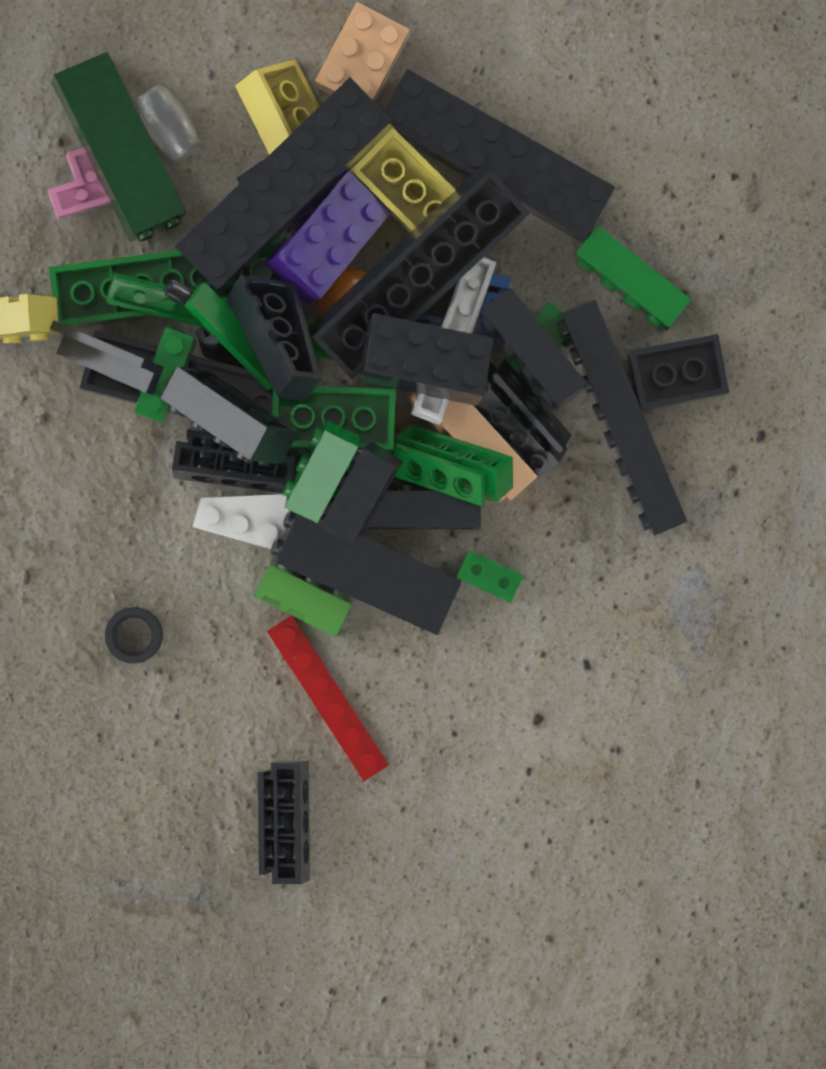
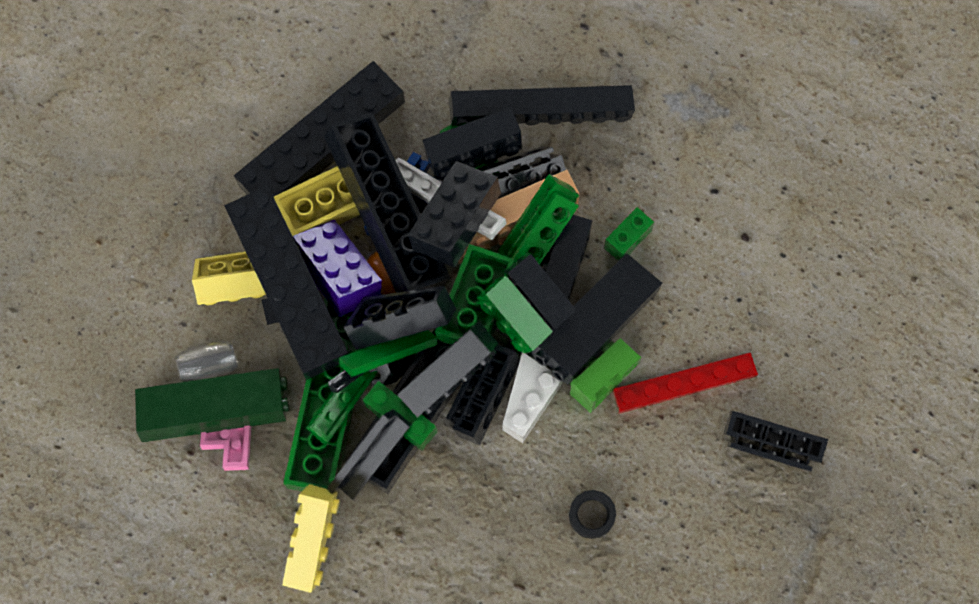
camera: 70 degrees left, 15 degrees down
(364, 52) = (203, 203): light nougat brick -> none
(631, 278) = (443, 73): green brick -> none
(678, 372) = (521, 57): black brick -> none

